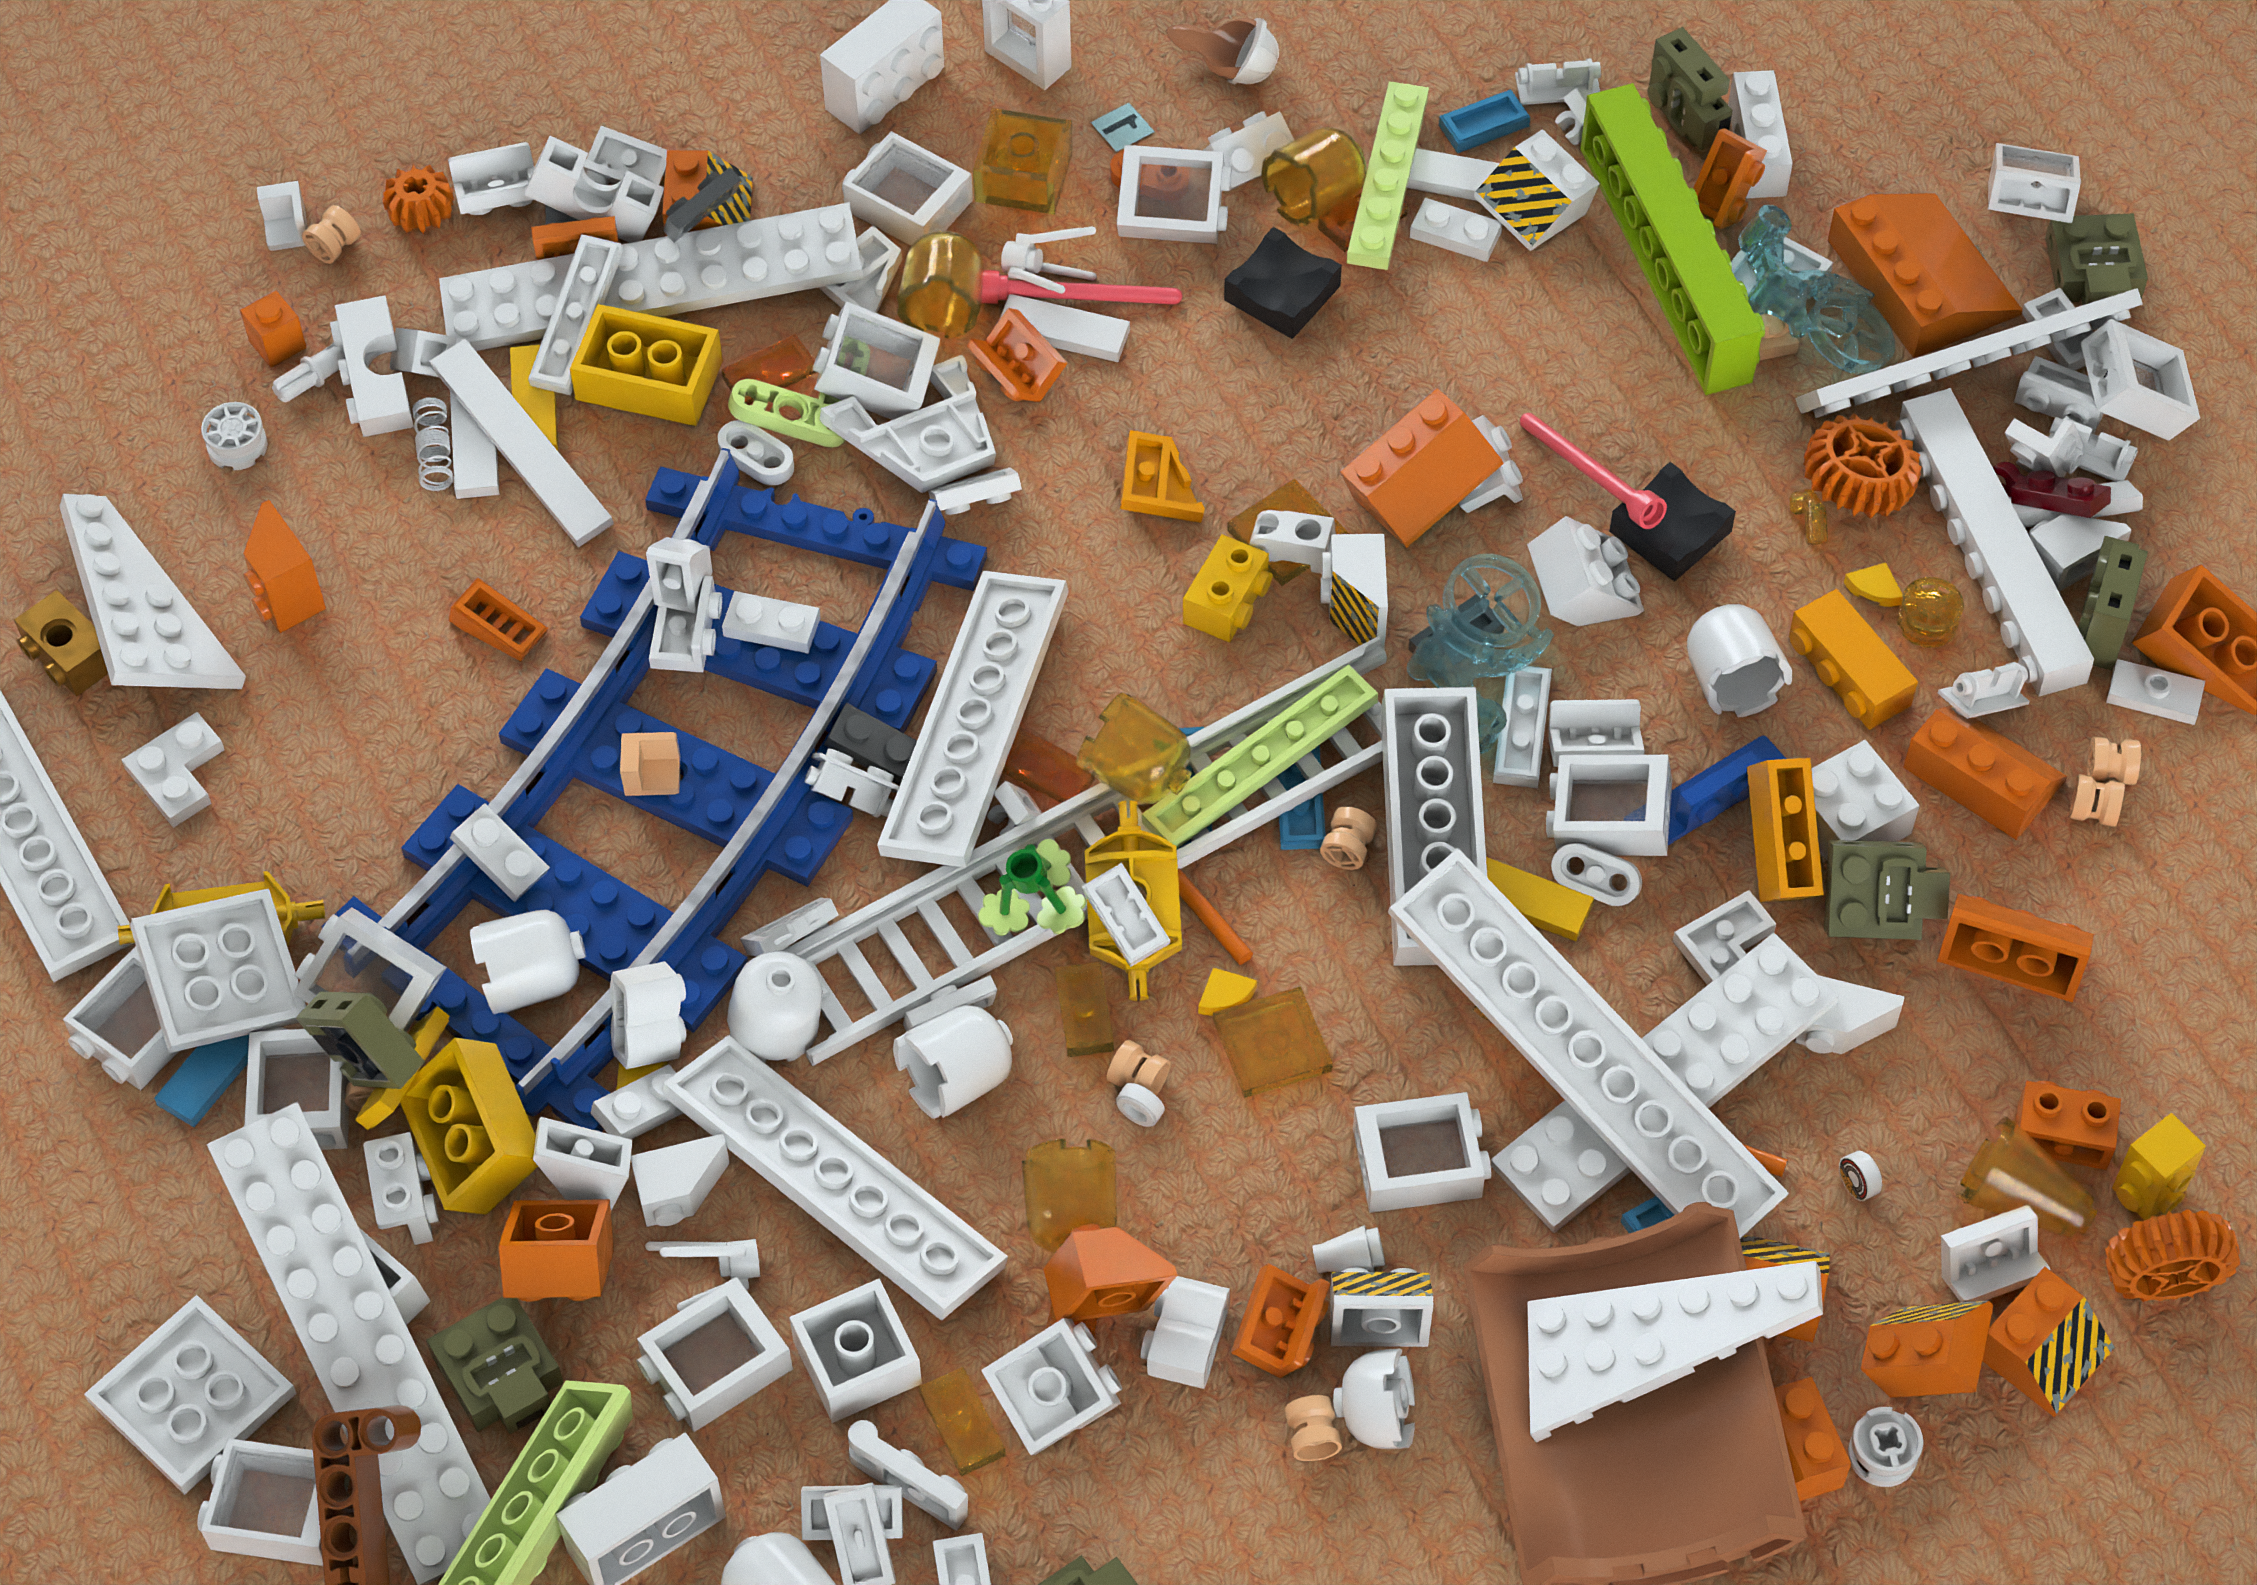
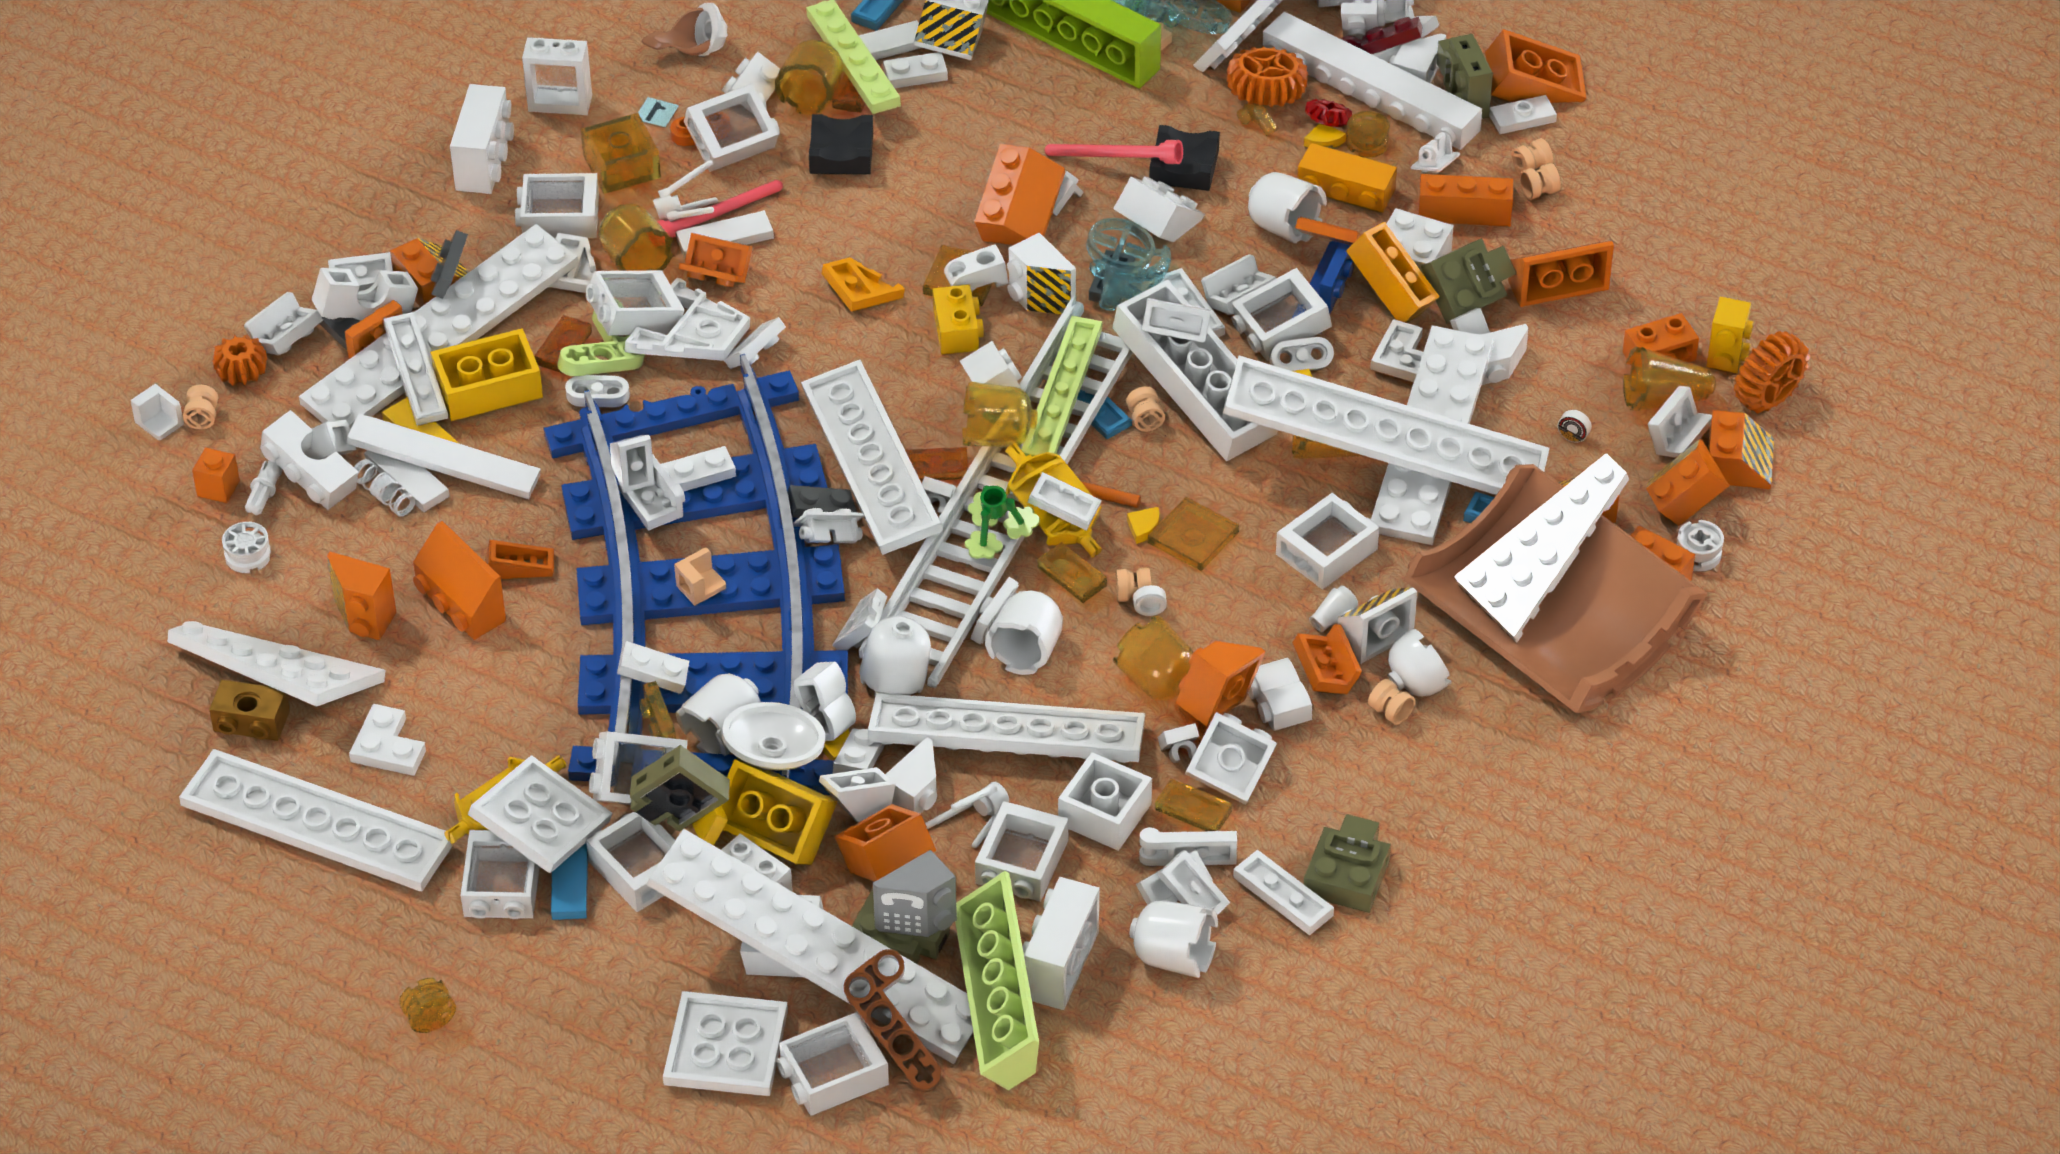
camera: 35 degrees left, 10 degrees down
(396, 617) = (459, 582): none -> orange slope
(457, 912) = (653, 707): none -> clear yellow plate
(505, 1353) = (916, 898): none -> light grey slope
(532, 1013) = (773, 735): none -> white dish
(1018, 1316) = (1179, 738): none -> white tile
(1195, 688) = (991, 367): none -> white brick
(1434, 751) = (1176, 320): none -> white plate
(1754, 725) = (1327, 231): none -> orange tile
(1839, 957) = (1471, 322): none -> white tile
(1909, 566) = (1328, 112): none -> red gear

